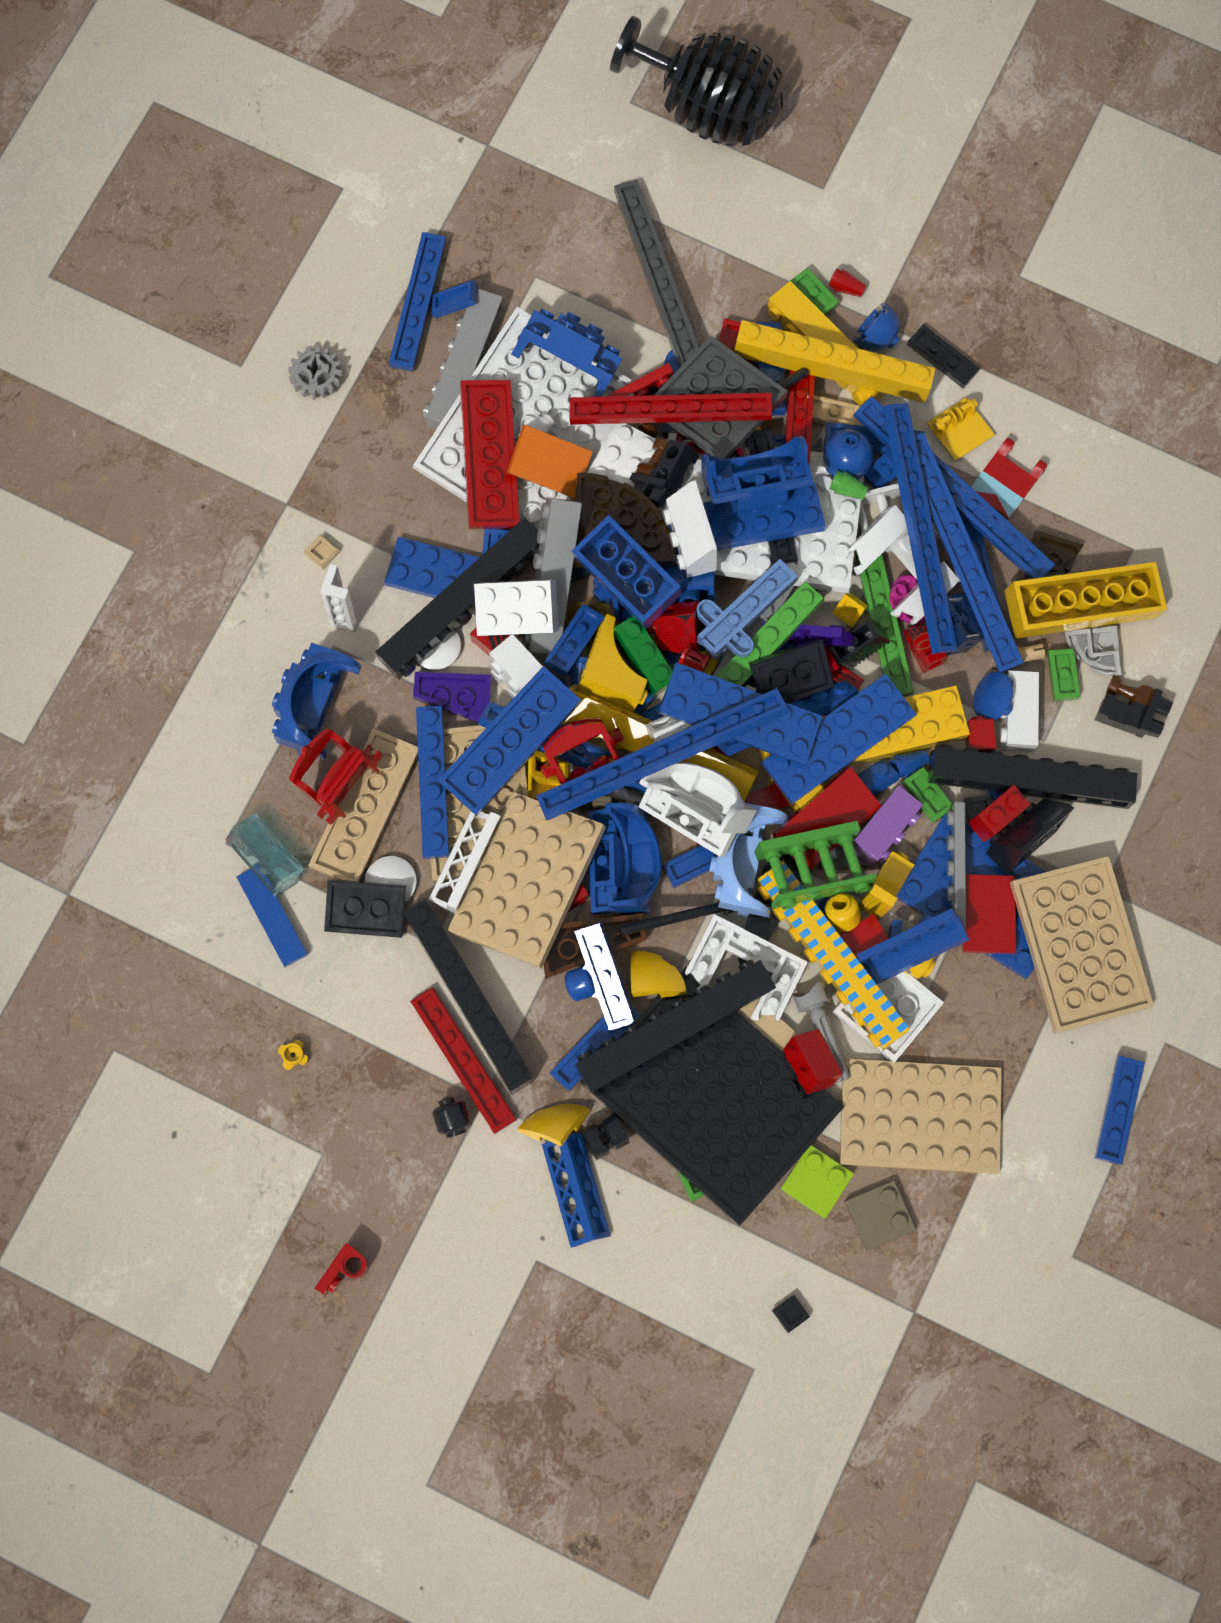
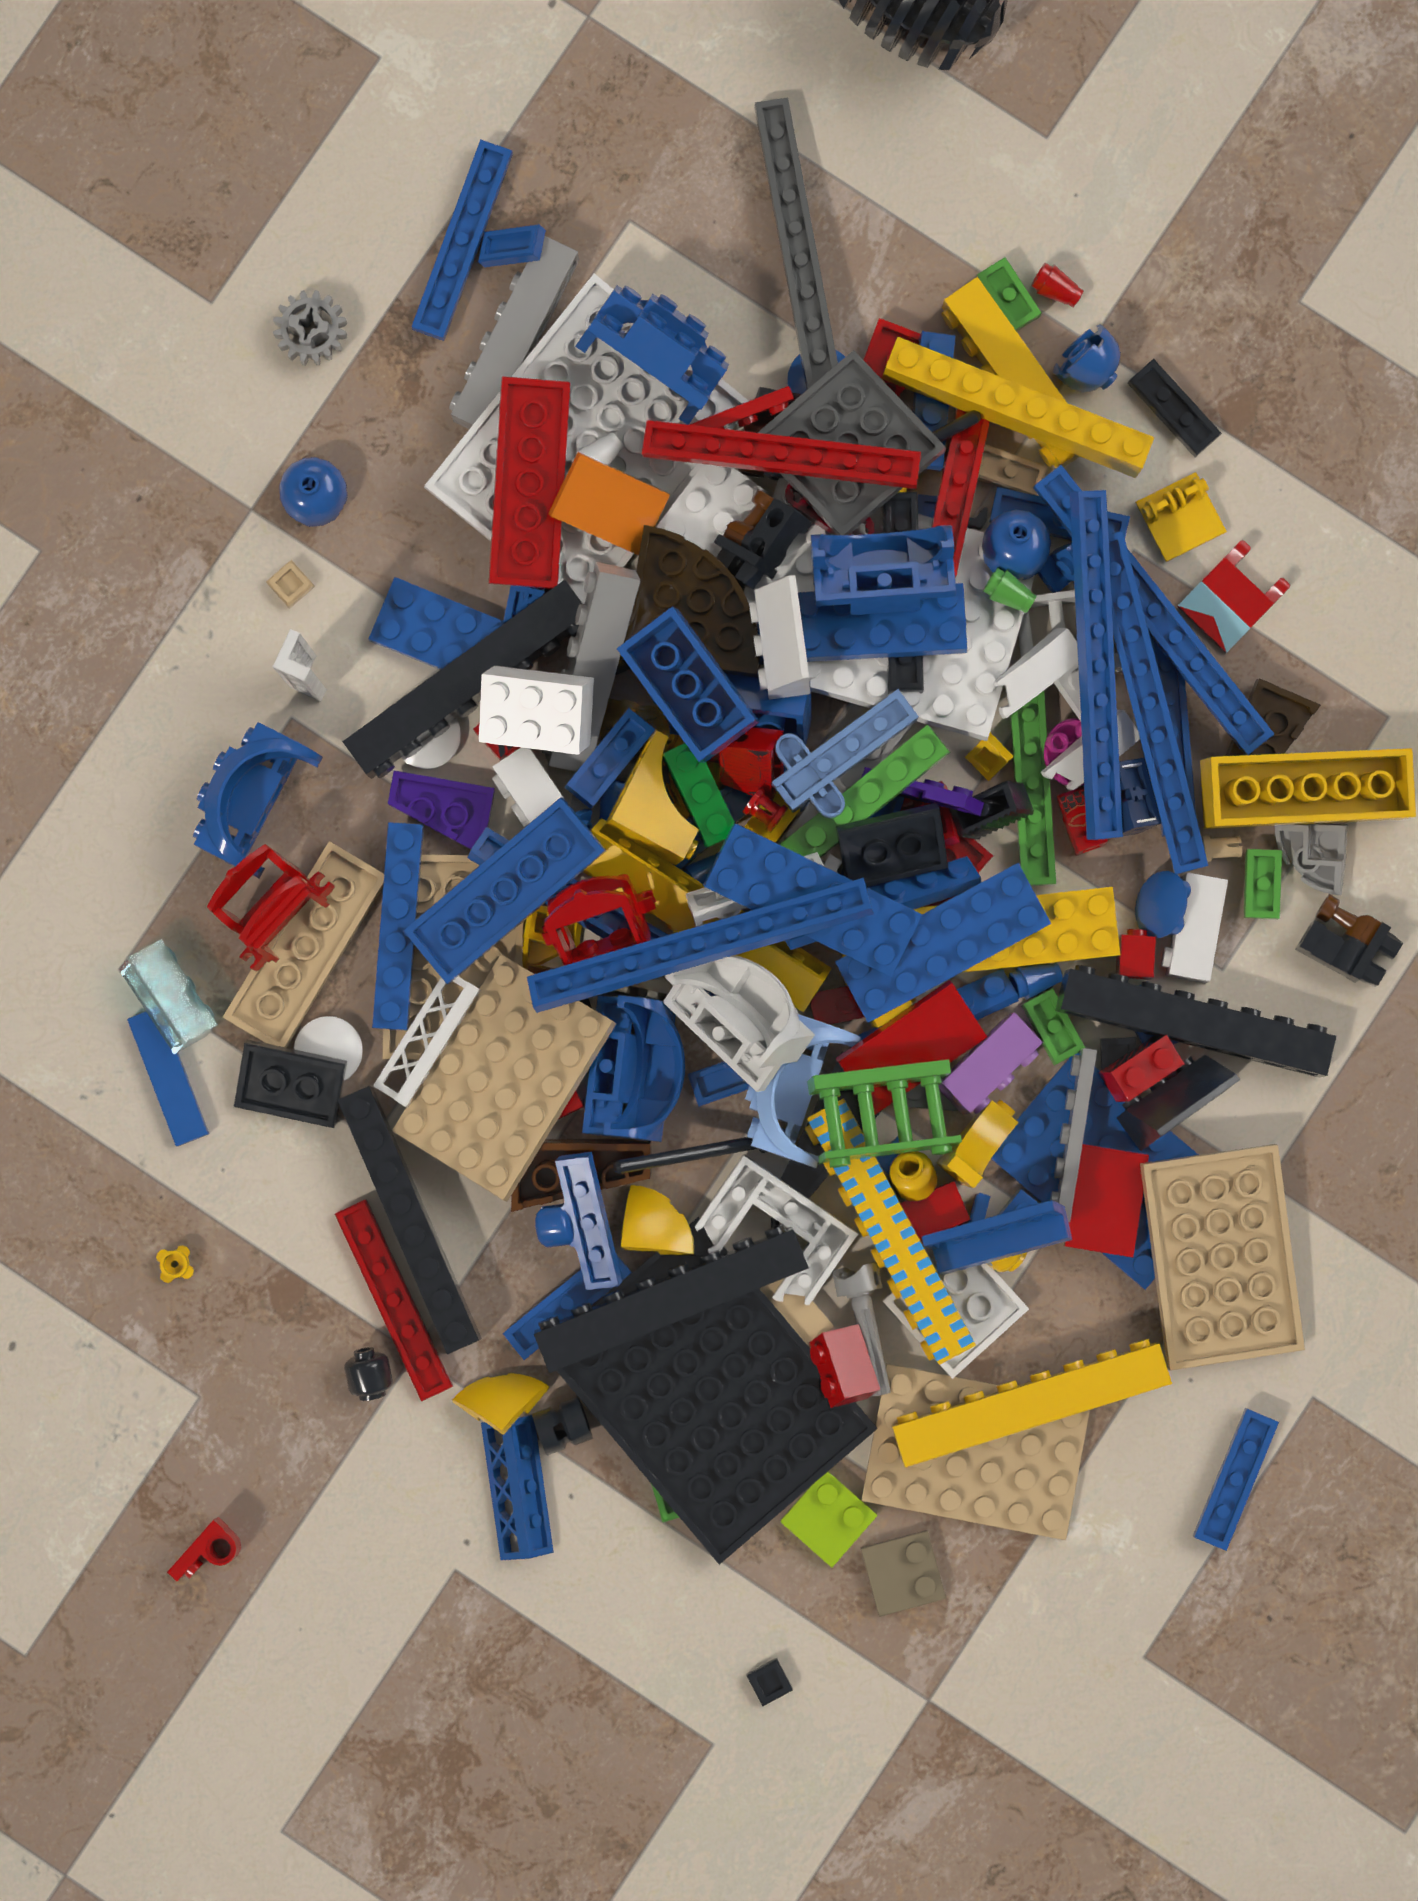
camera: 15 degrees right, 10 degrees up
(330, 485) = (323, 501): none -> blue cylinder
(957, 1070) = (1031, 1403): none -> yellow brick

